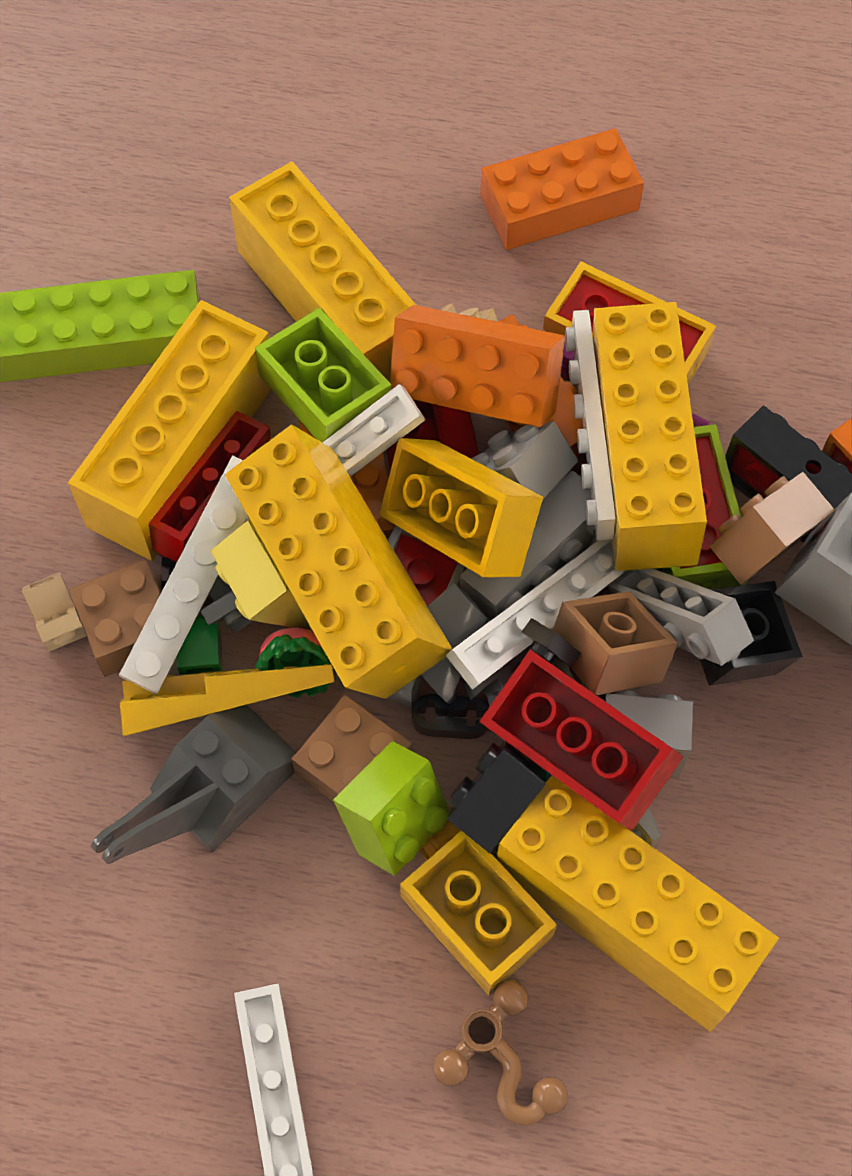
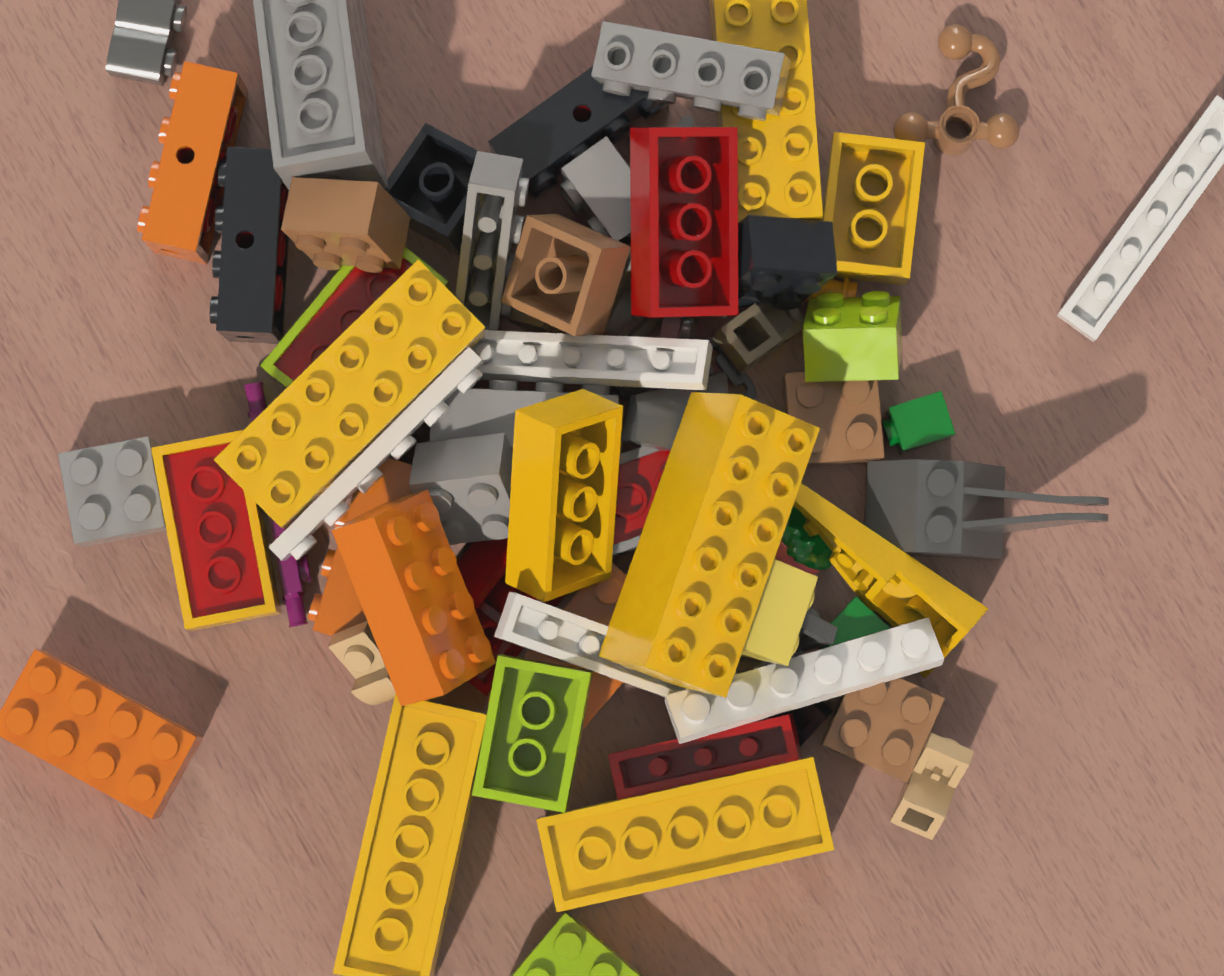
camera: 130 degrees left, 20 degrees up
(294, 815) = (918, 423): none -> green brick
(457, 750) = (757, 334): none -> dark tan brick
(550, 644) = (619, 316): black plate -> none
(690, 834) = (690, 69): none -> light grey brick
(711, 293) = (112, 491): none -> light grey brick
(719, 764) = (554, 132): none -> black brick

